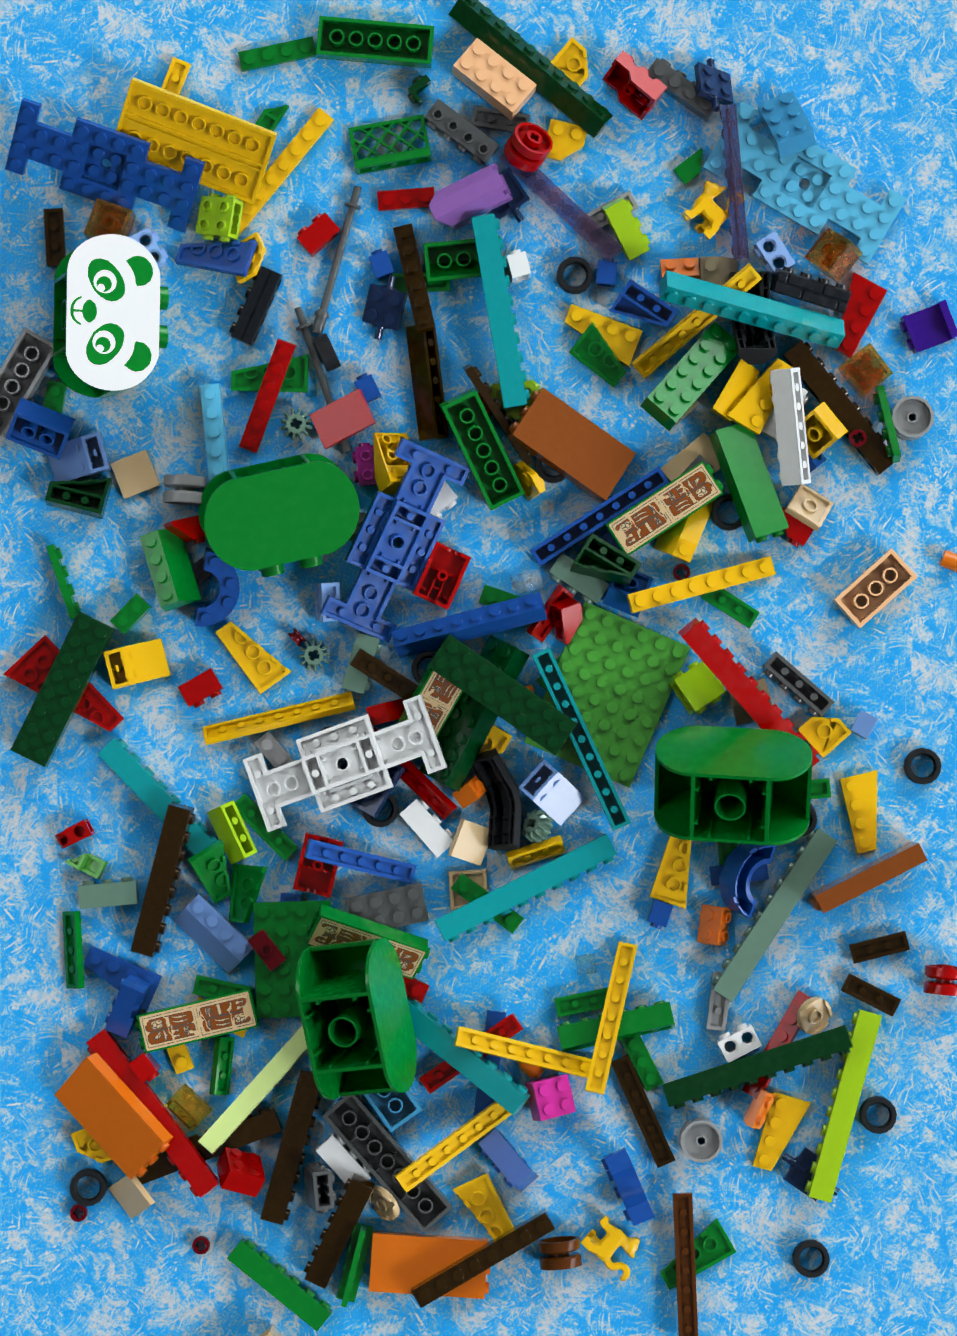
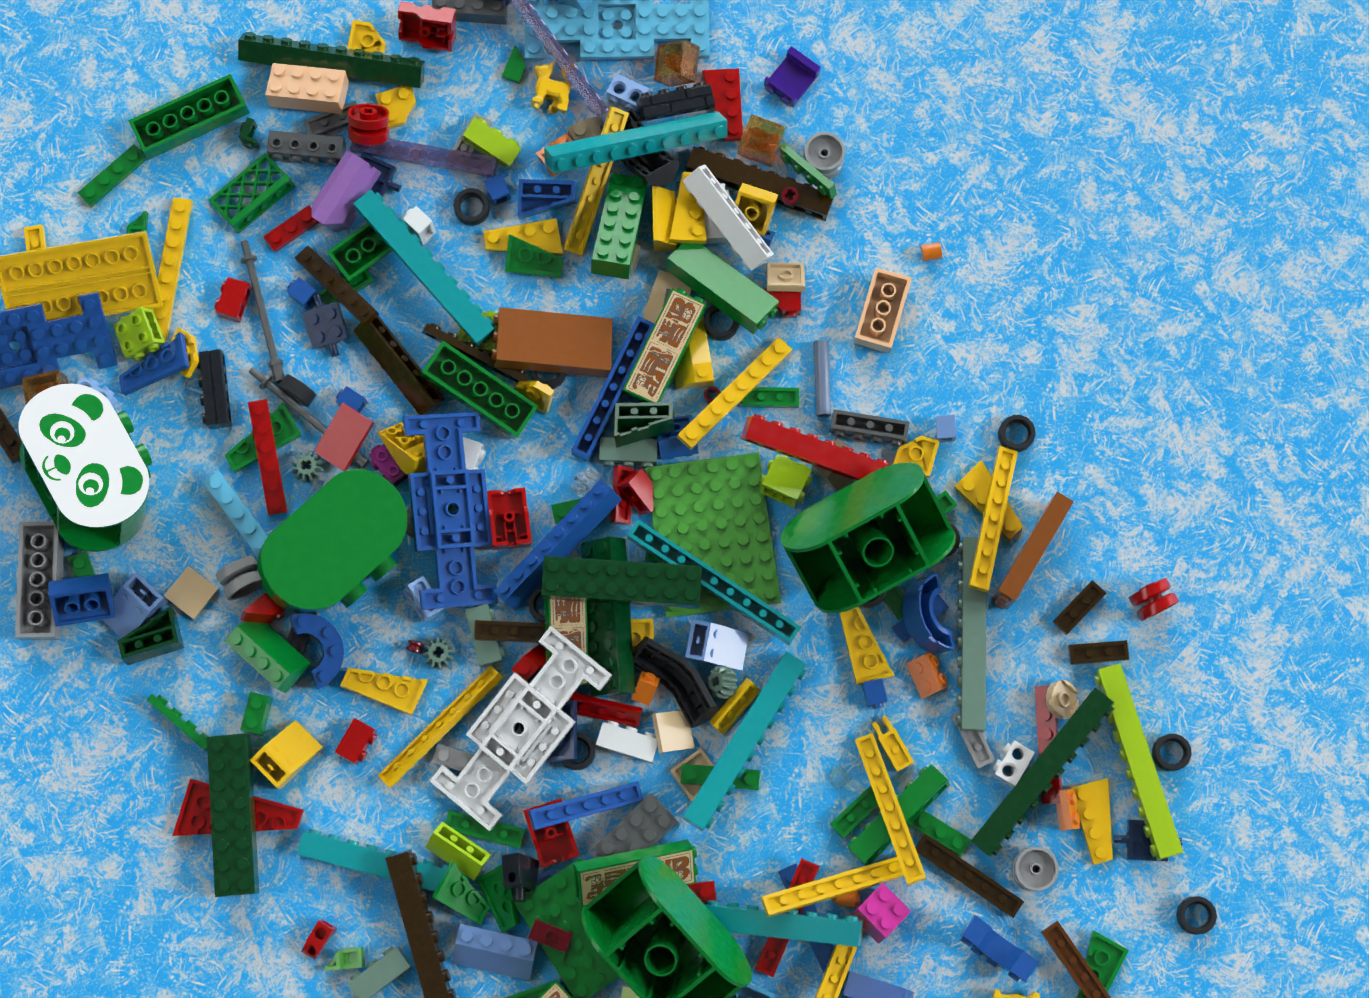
camera: 30 degrees left, 10 degrees down
(271, 884) = (519, 874): none -> black torso
(648, 966) = (893, 745): none -> yellow hinge
(785, 616) = (822, 378): none -> sand blue piece
(852, 829) = (992, 519): none -> yellow plate

